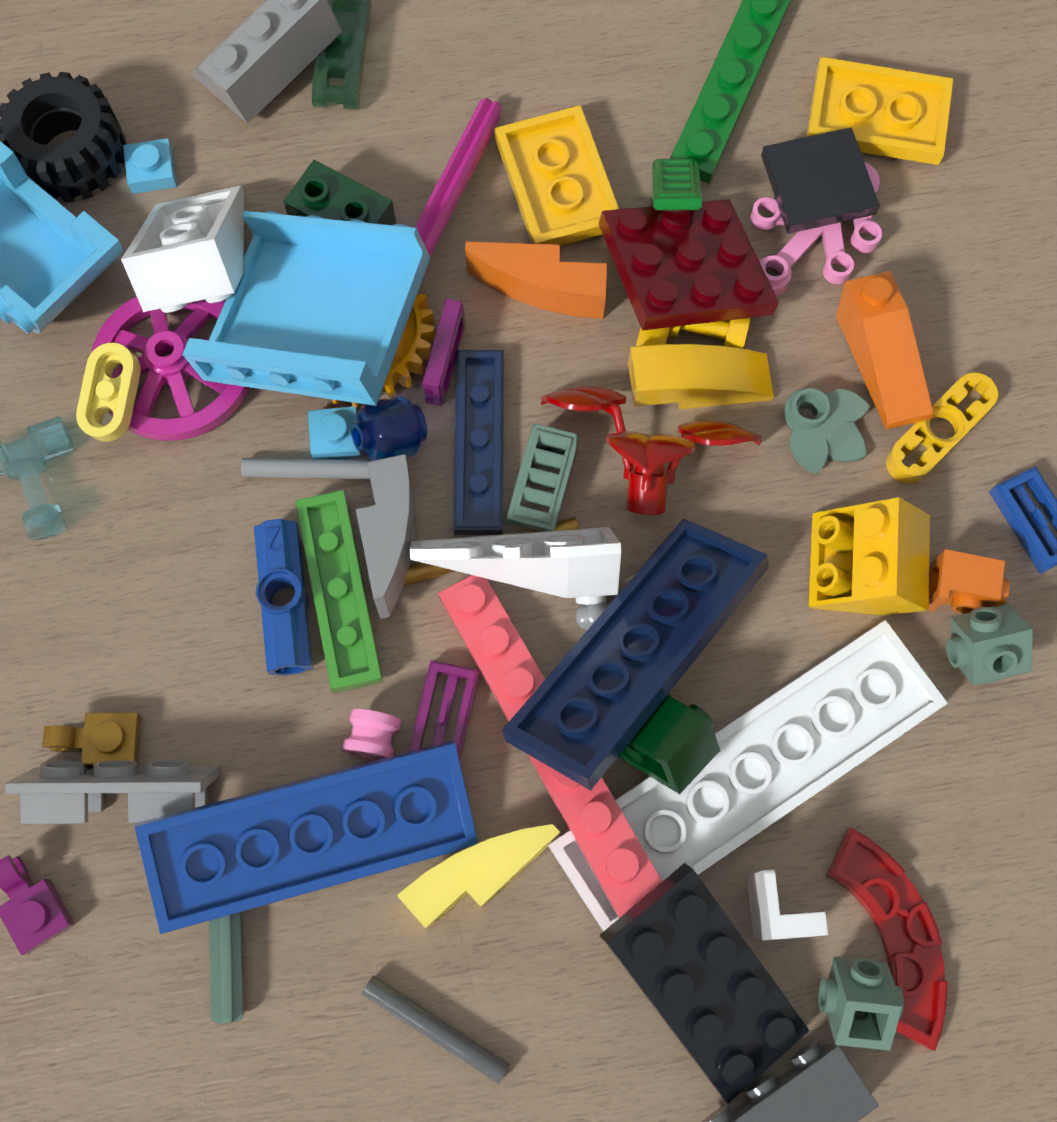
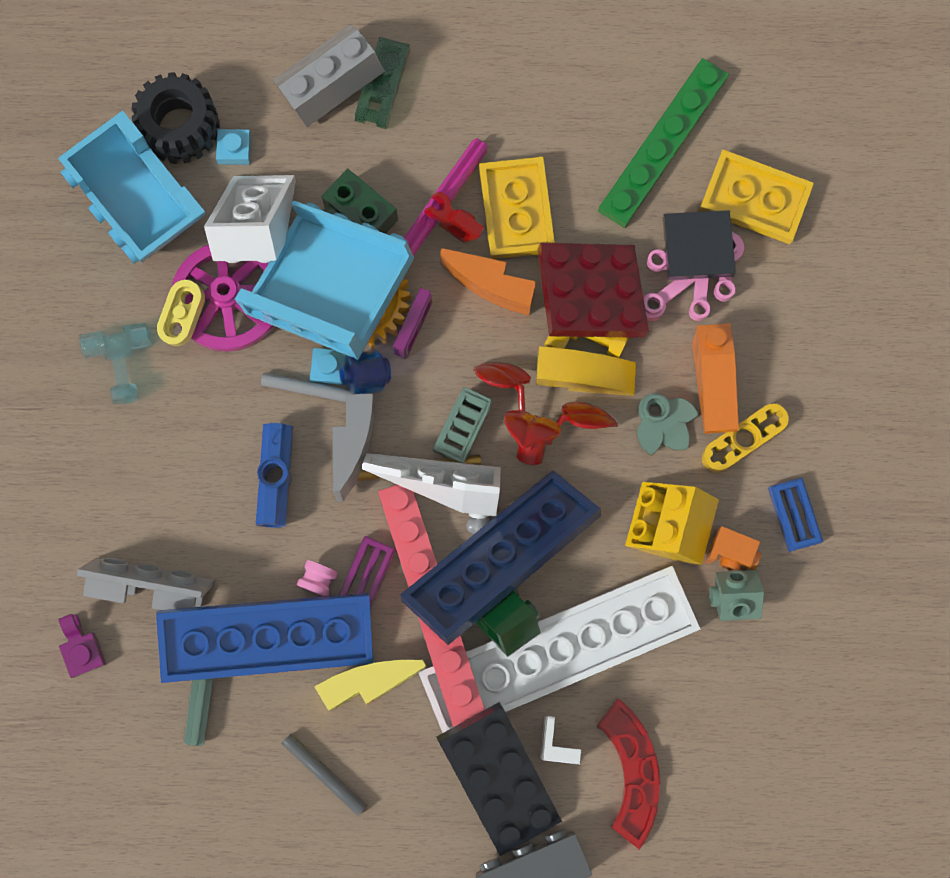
camera: 10 degrees right, 5 degrees up
(102, 738) = (142, 547): pearl gold plate -> none
(338, 592) = (312, 477): bright green plate -> none
(477, 206) = (456, 222): none -> red plate
(479, 443) = (425, 390): dark blue tile -> none
(676, 184) = (596, 231): green slope -> none
(861, 1003) = (597, 810): sand green brick -> none

